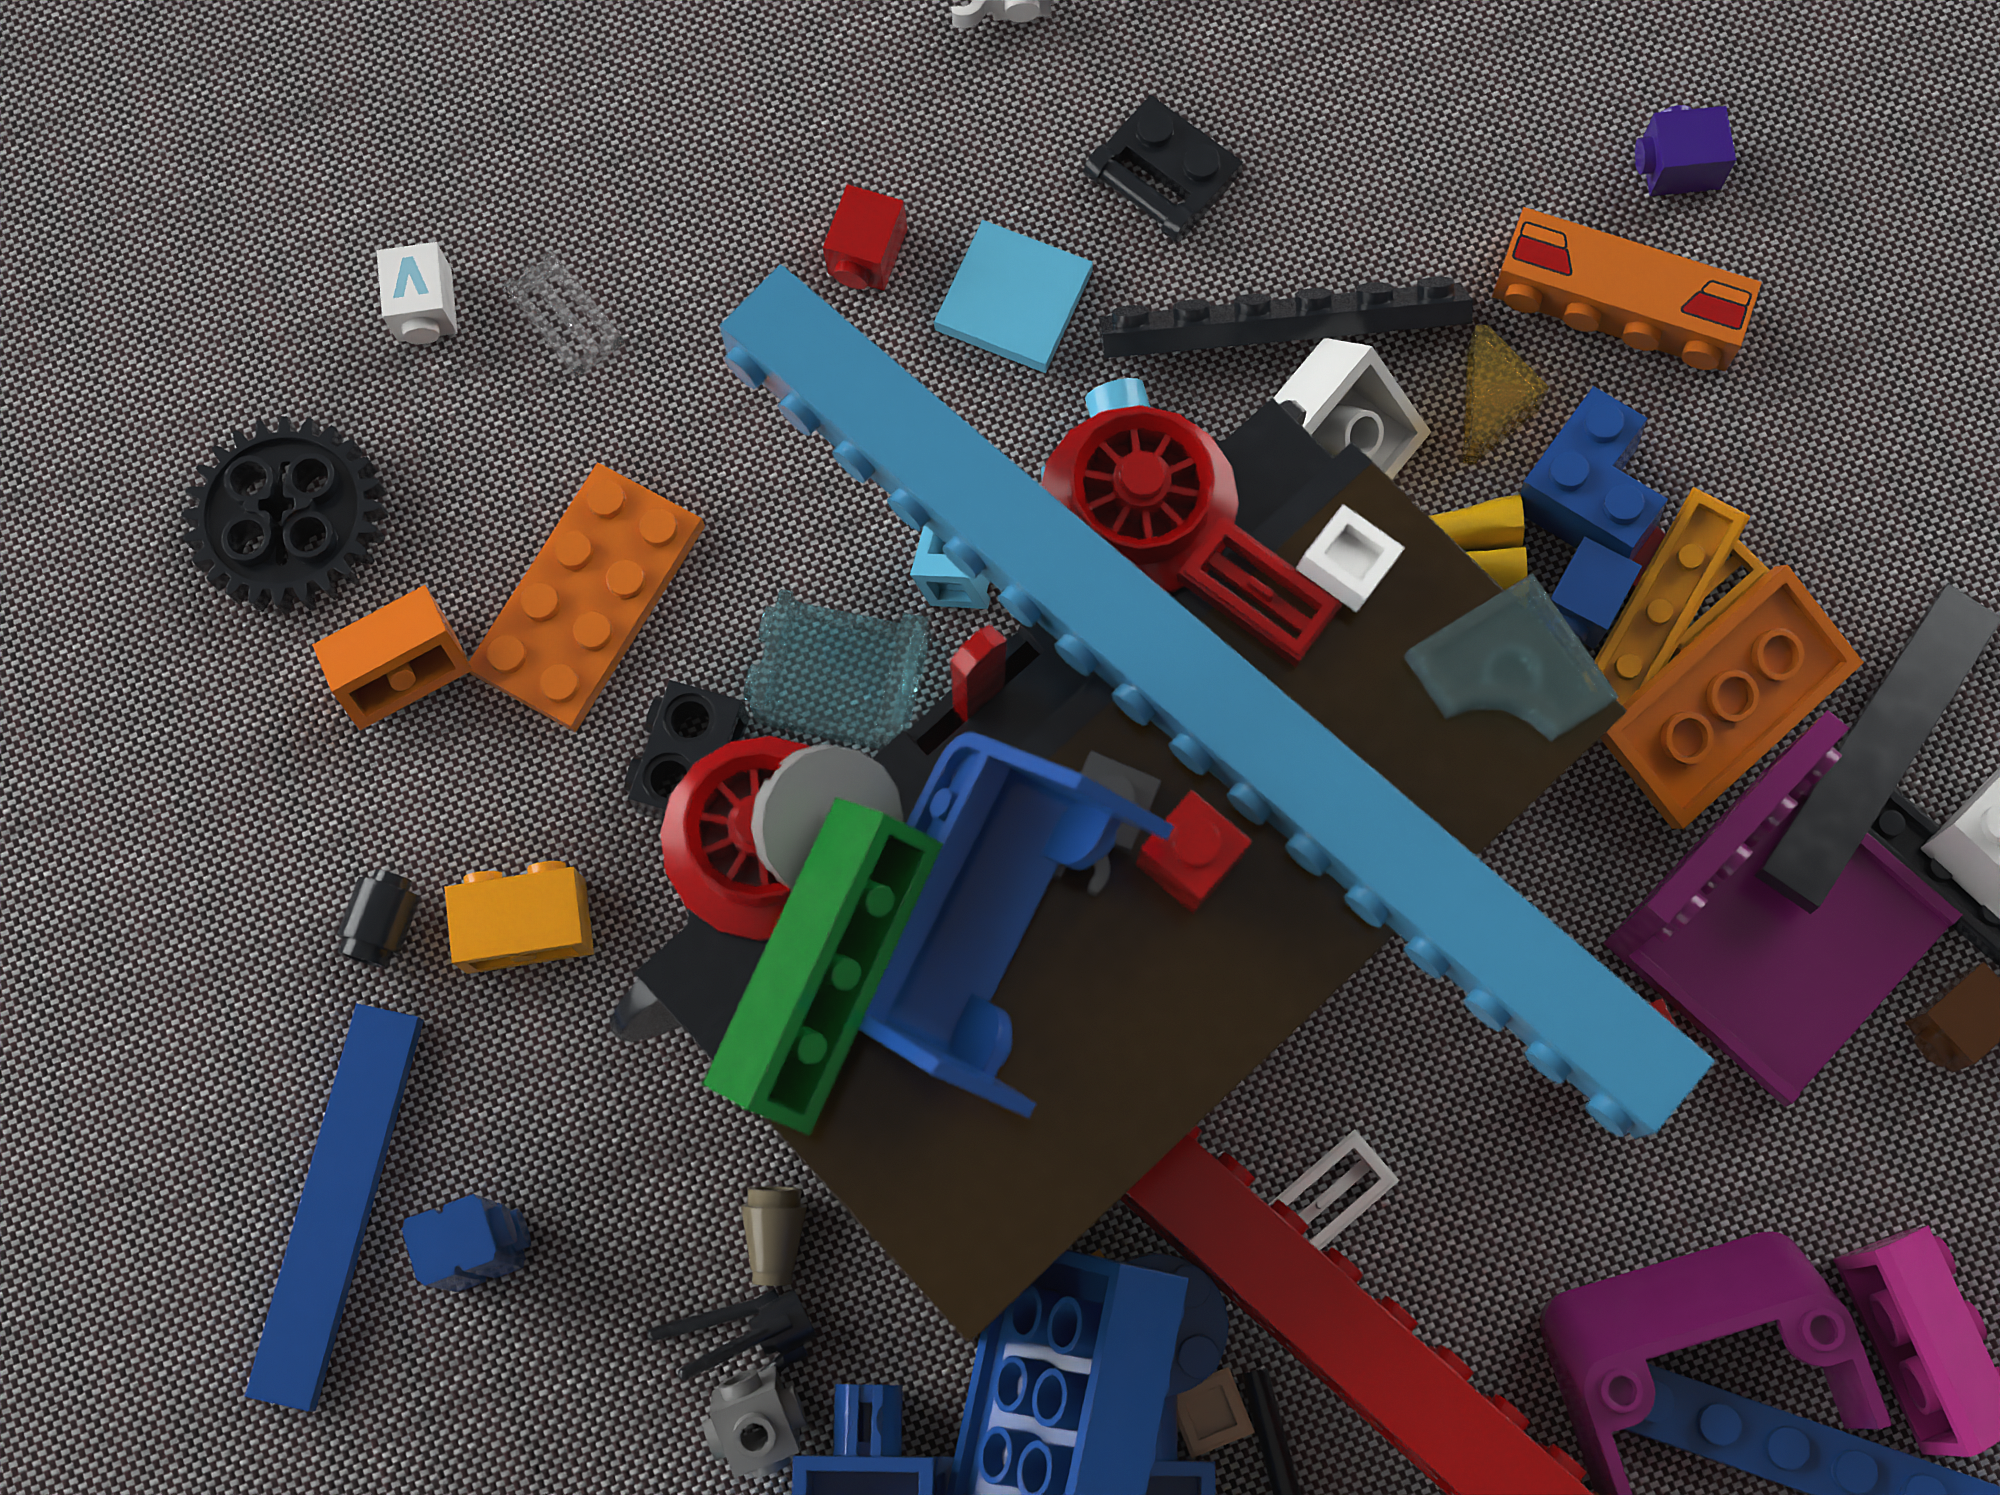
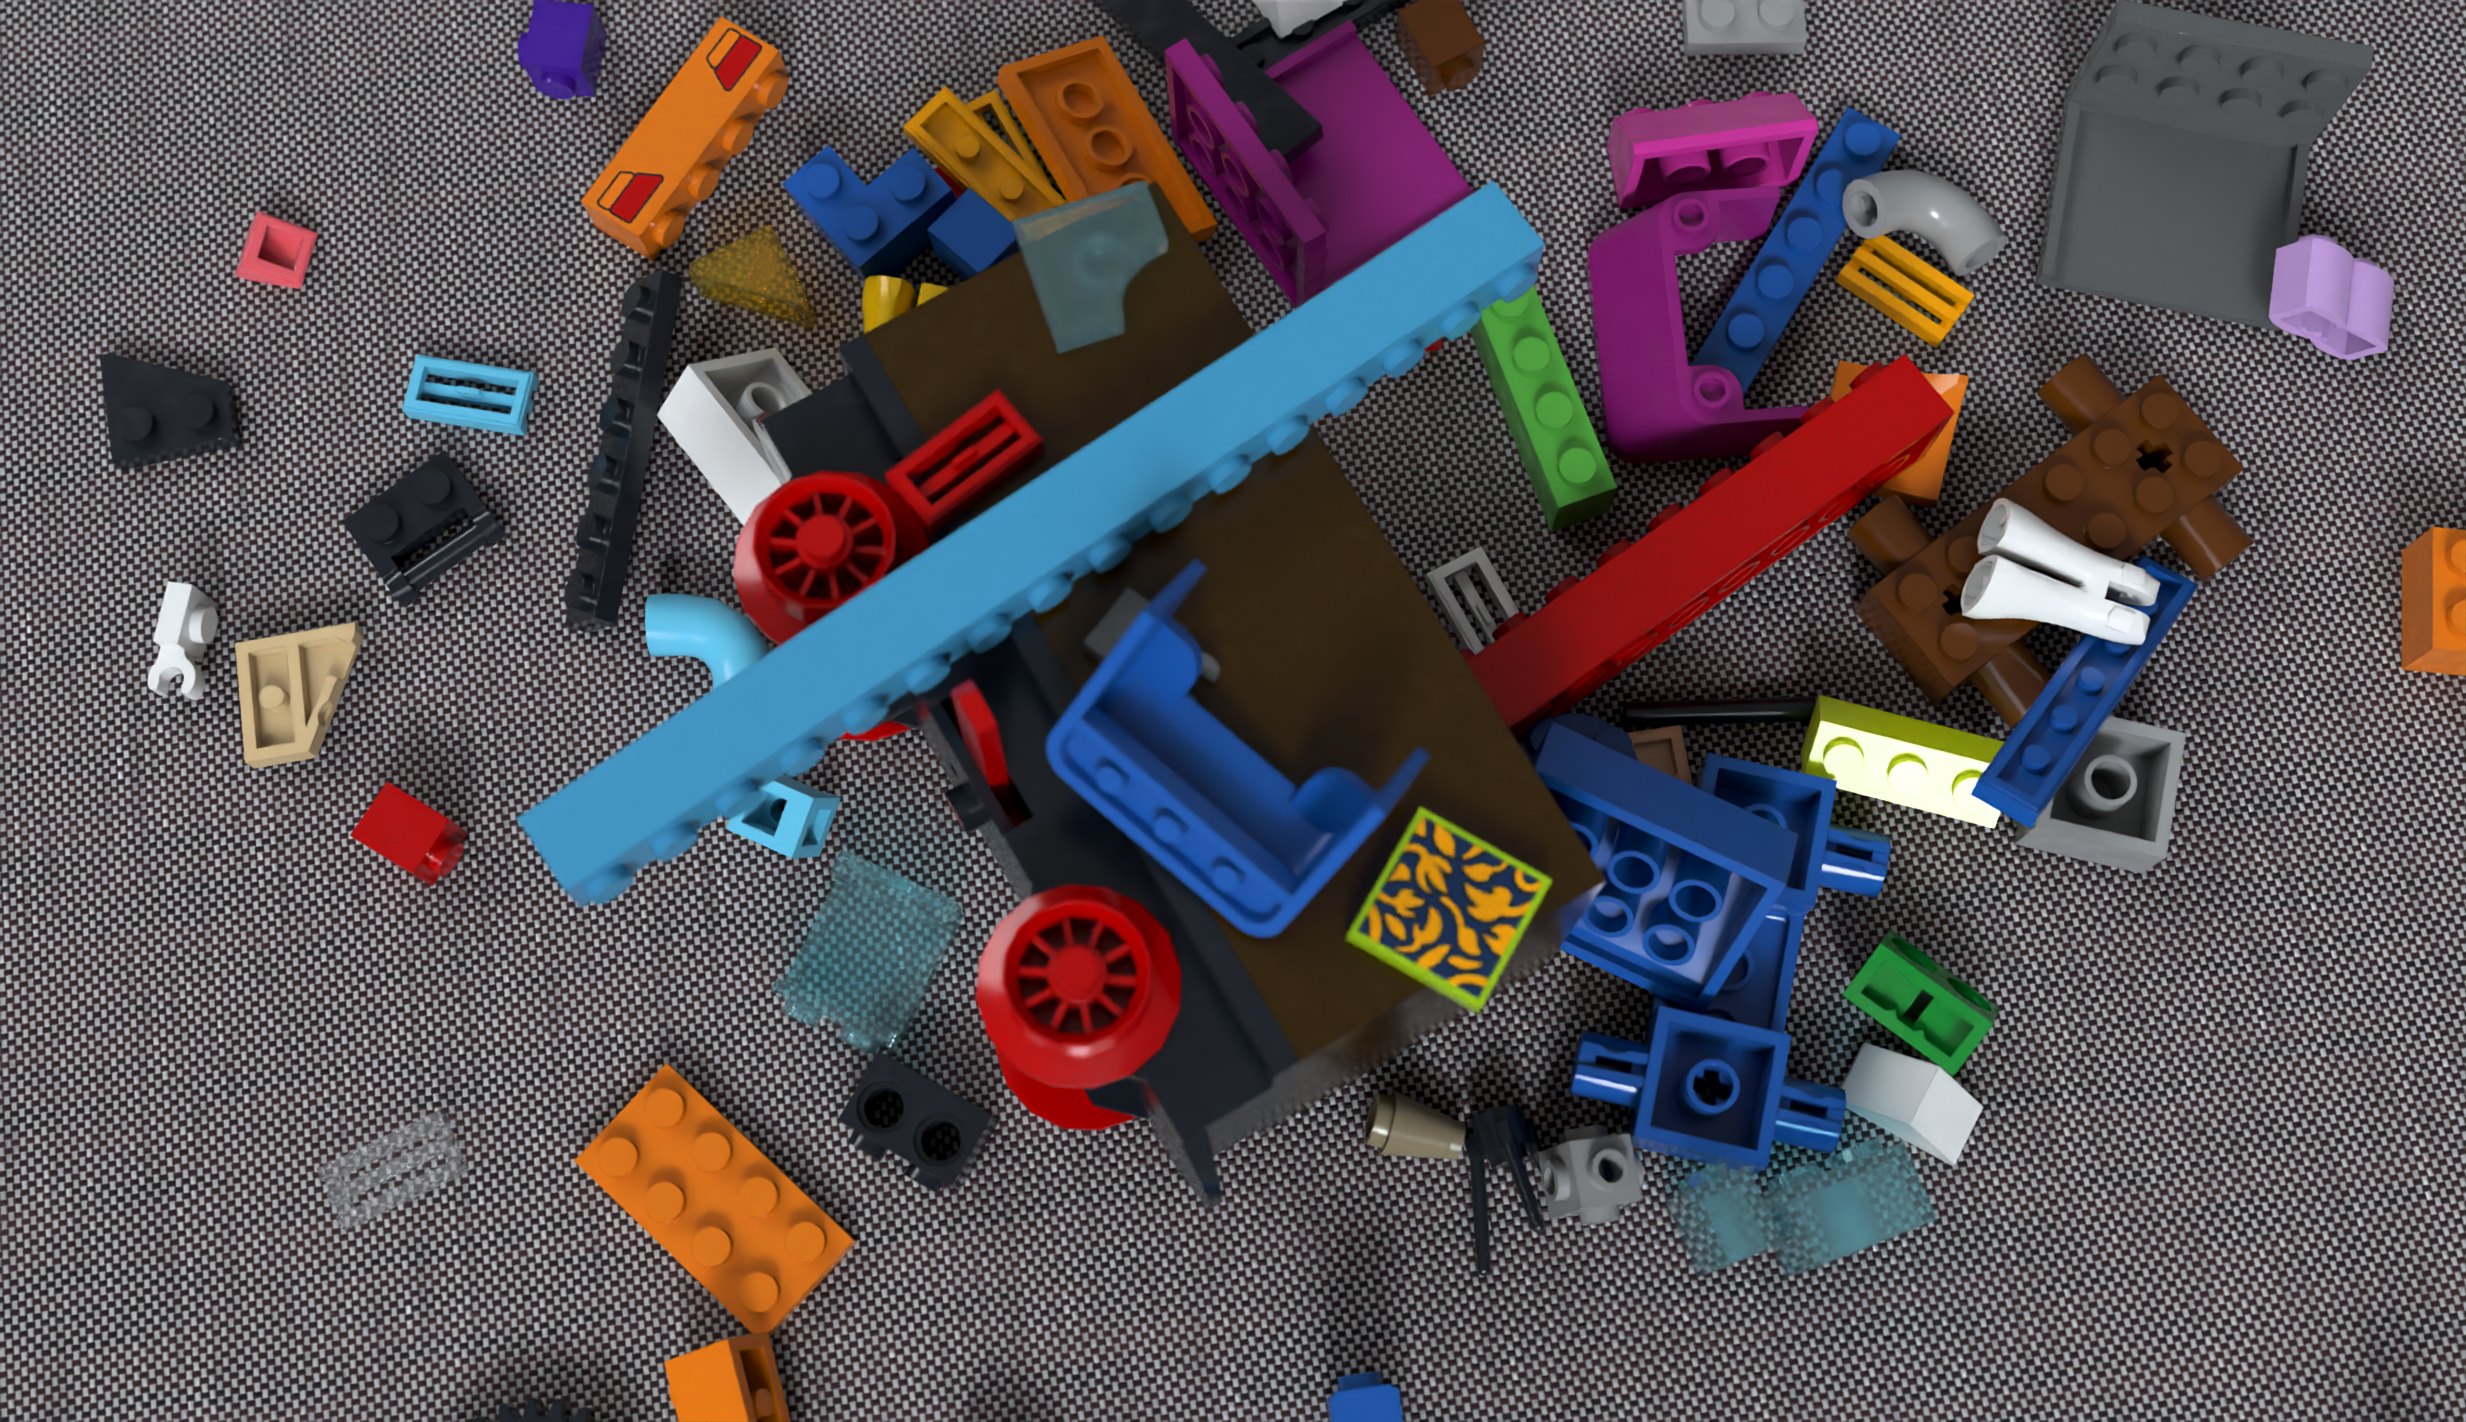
camera: 80 degrees left, 0 degrees up
(417, 293) = (324, 1322): white brick -> none
(518, 918) = (1043, 1326): light orange brick -> none
(800, 795) = (1095, 898): light grey tile -> none
(822, 965) = (1239, 922): green brick -> none
(896, 1181) = (1449, 909): none -> tile
(978, 101) = (292, 690): none -> tan wing
(1013, 296) = (516, 703): medium azure tile -> none
(1195, 855) = (1229, 575): red brick -> none
(1310, 214) = (511, 423): none -> medium azure tile
(1349, 558) = (958, 370): white plate -> none
(1575, 1211) = (1544, 411): none -> bright green brick

